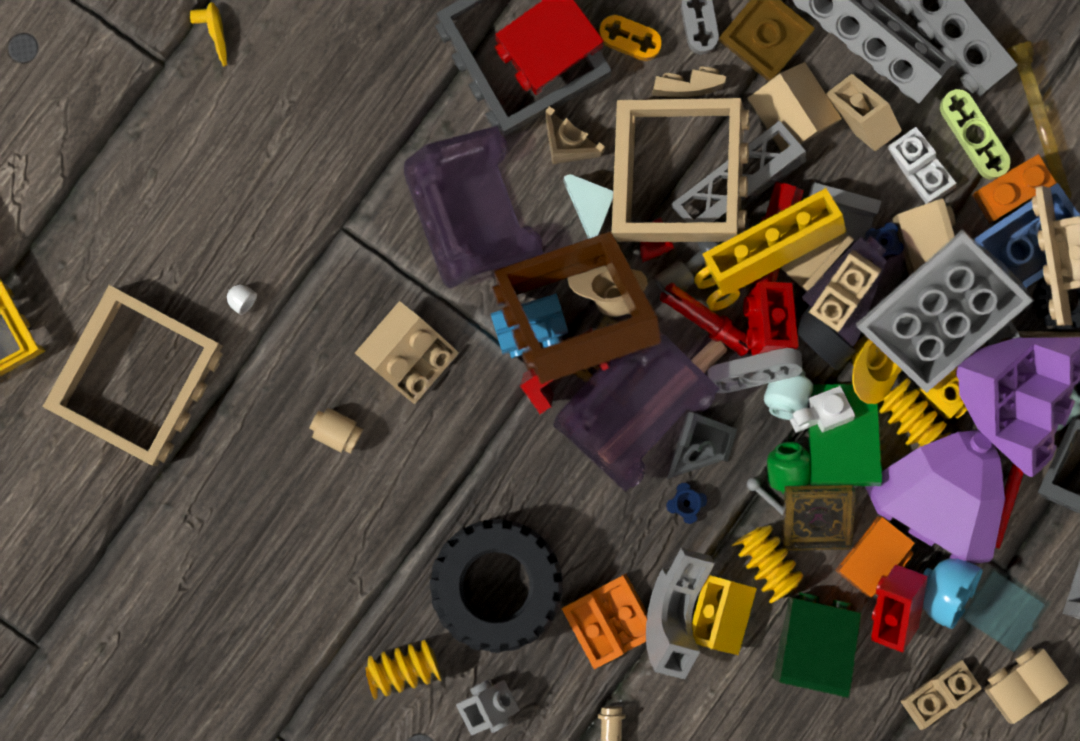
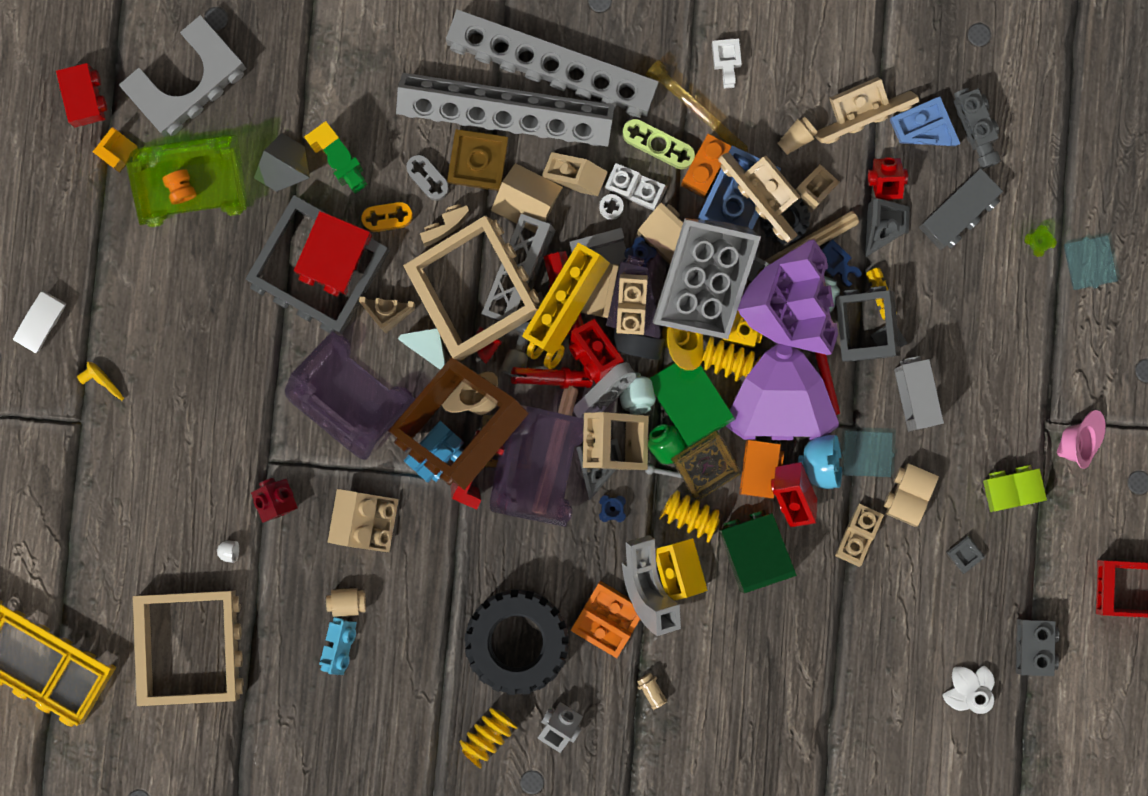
camera: 30 degrees left, 0 degrees up
(288, 485) = (336, 658): none -> medium azure hinge
(324, 271) = (273, 499): none -> dark red brick
(709, 433) = (597, 454): none -> tan window
(825, 409) = (668, 391): white plate -> none
(882, 182) = (607, 199): none -> white bush

